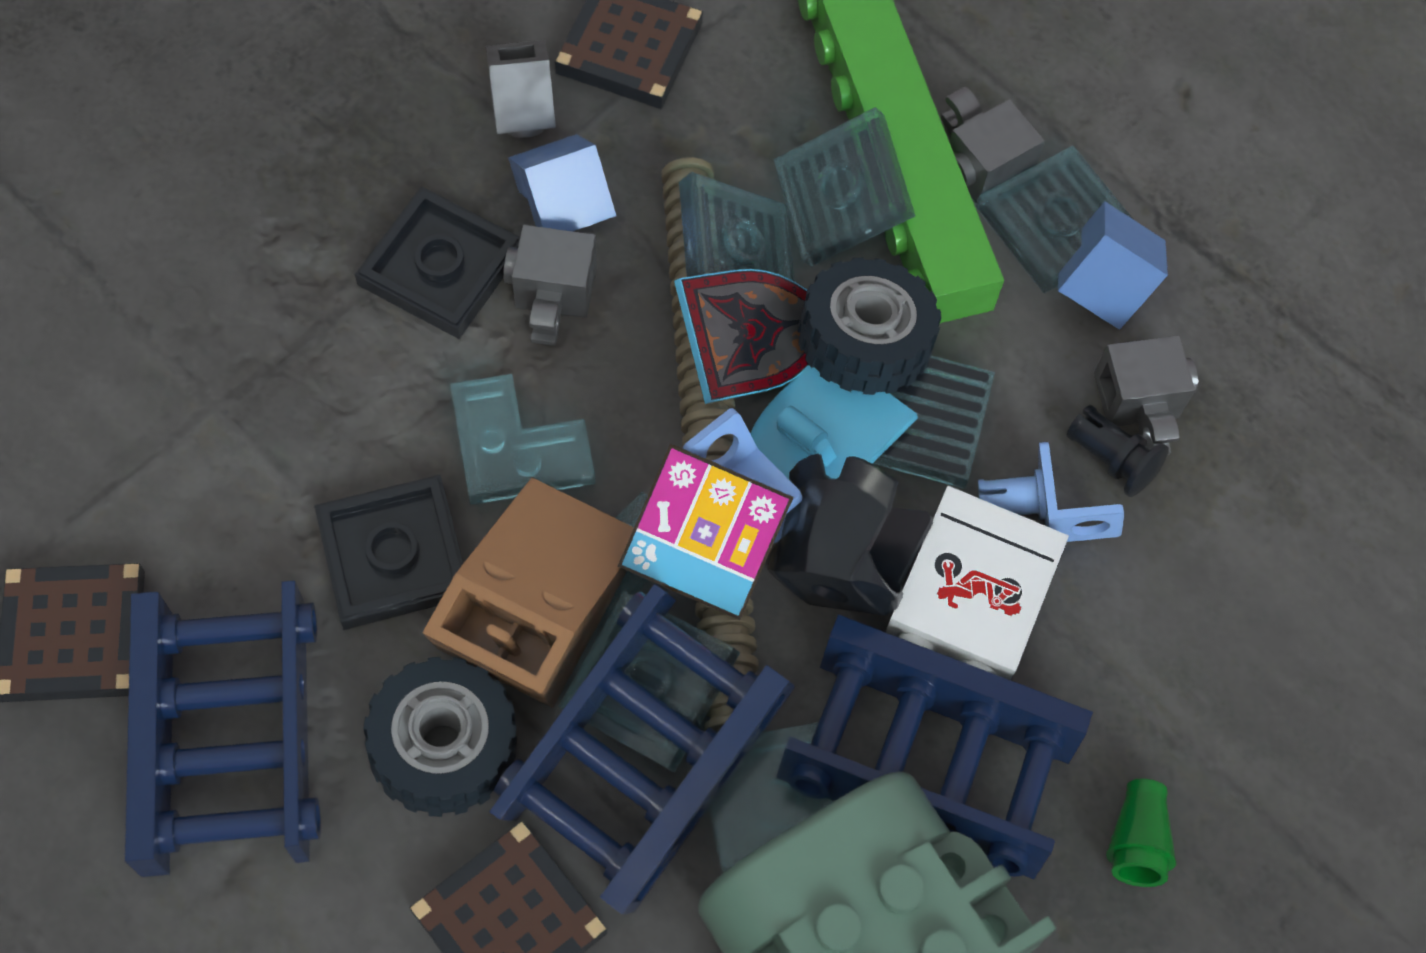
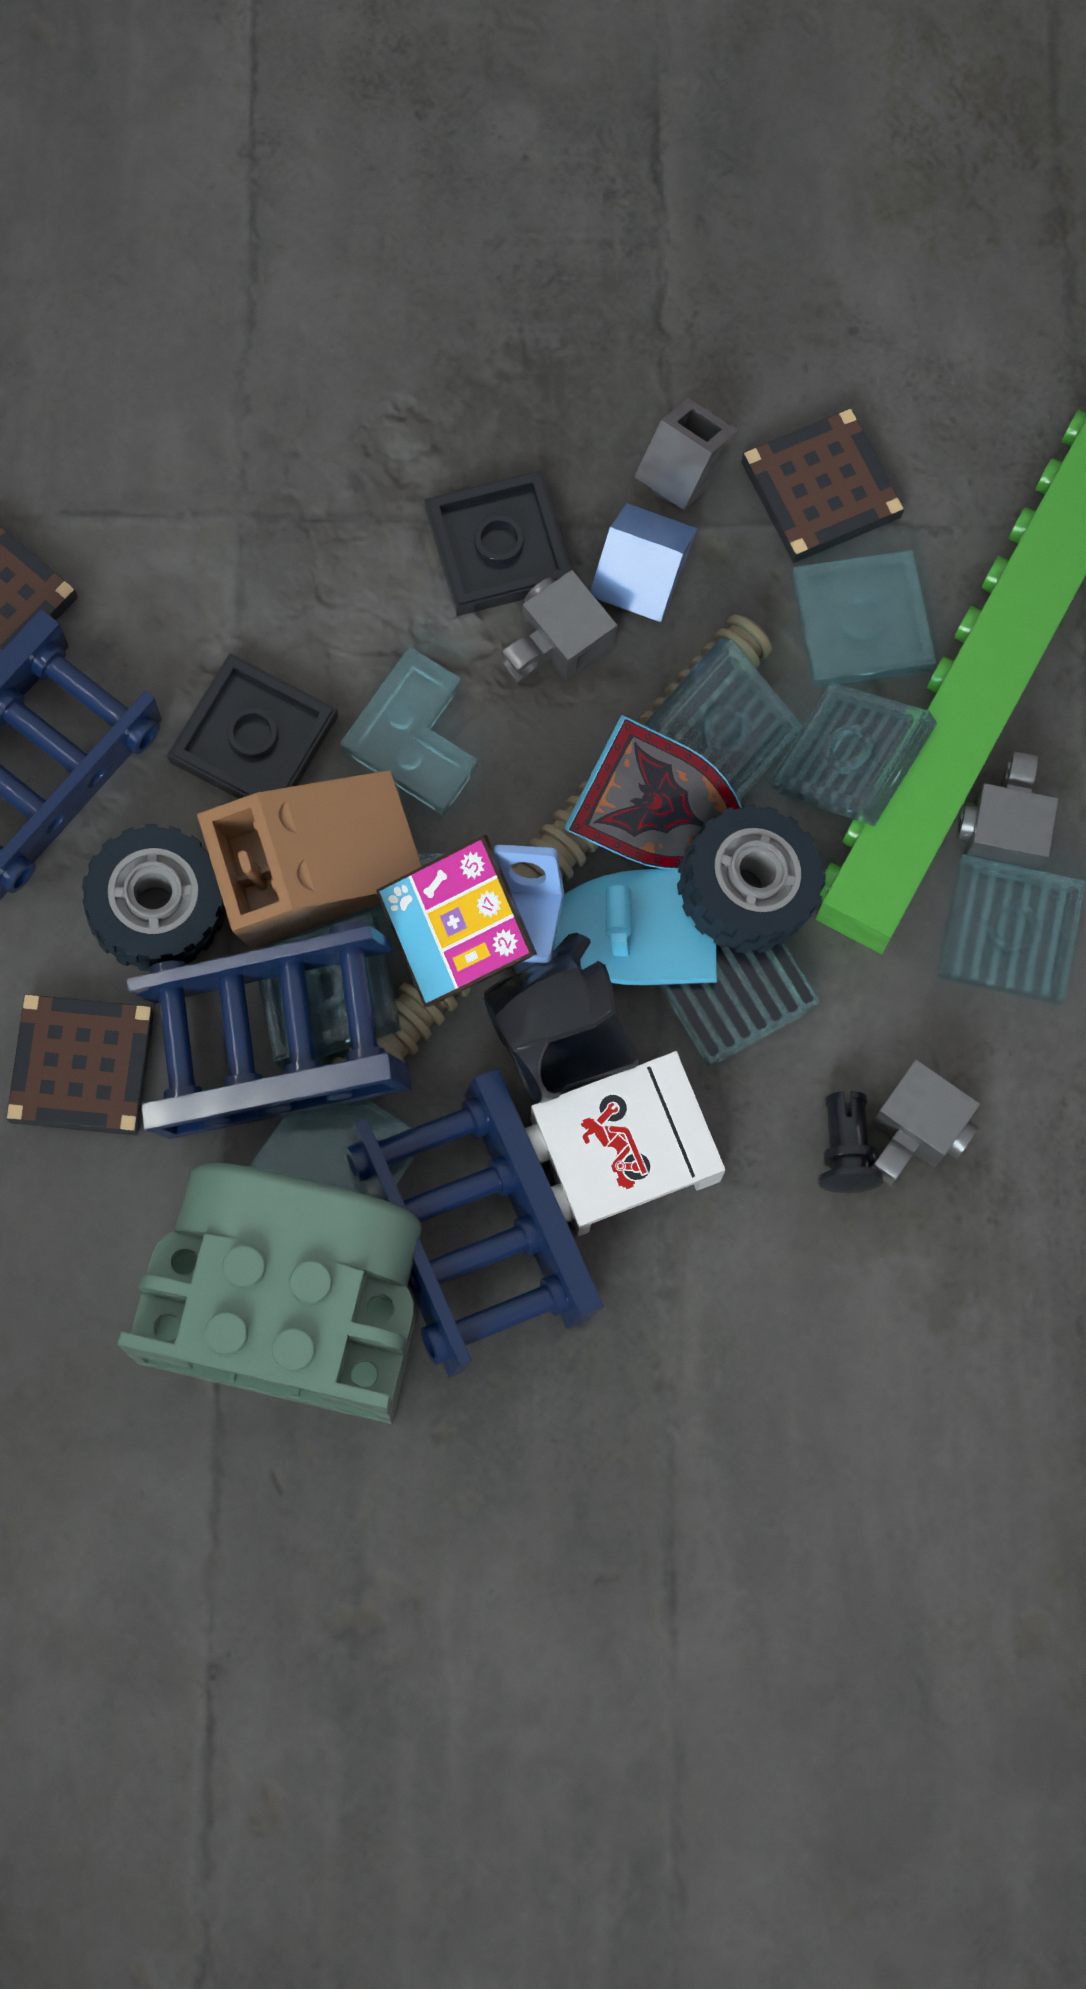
camera: 45 degrees right, 10 degrees up
(747, 105) = (863, 619): none -> clear light blue tile
(1038, 496) = (749, 1125): light blue bracket -> none
(1114, 266) = (998, 1004): medium blue piece -> none
(1142, 837) = (556, 1425): green cone -> none

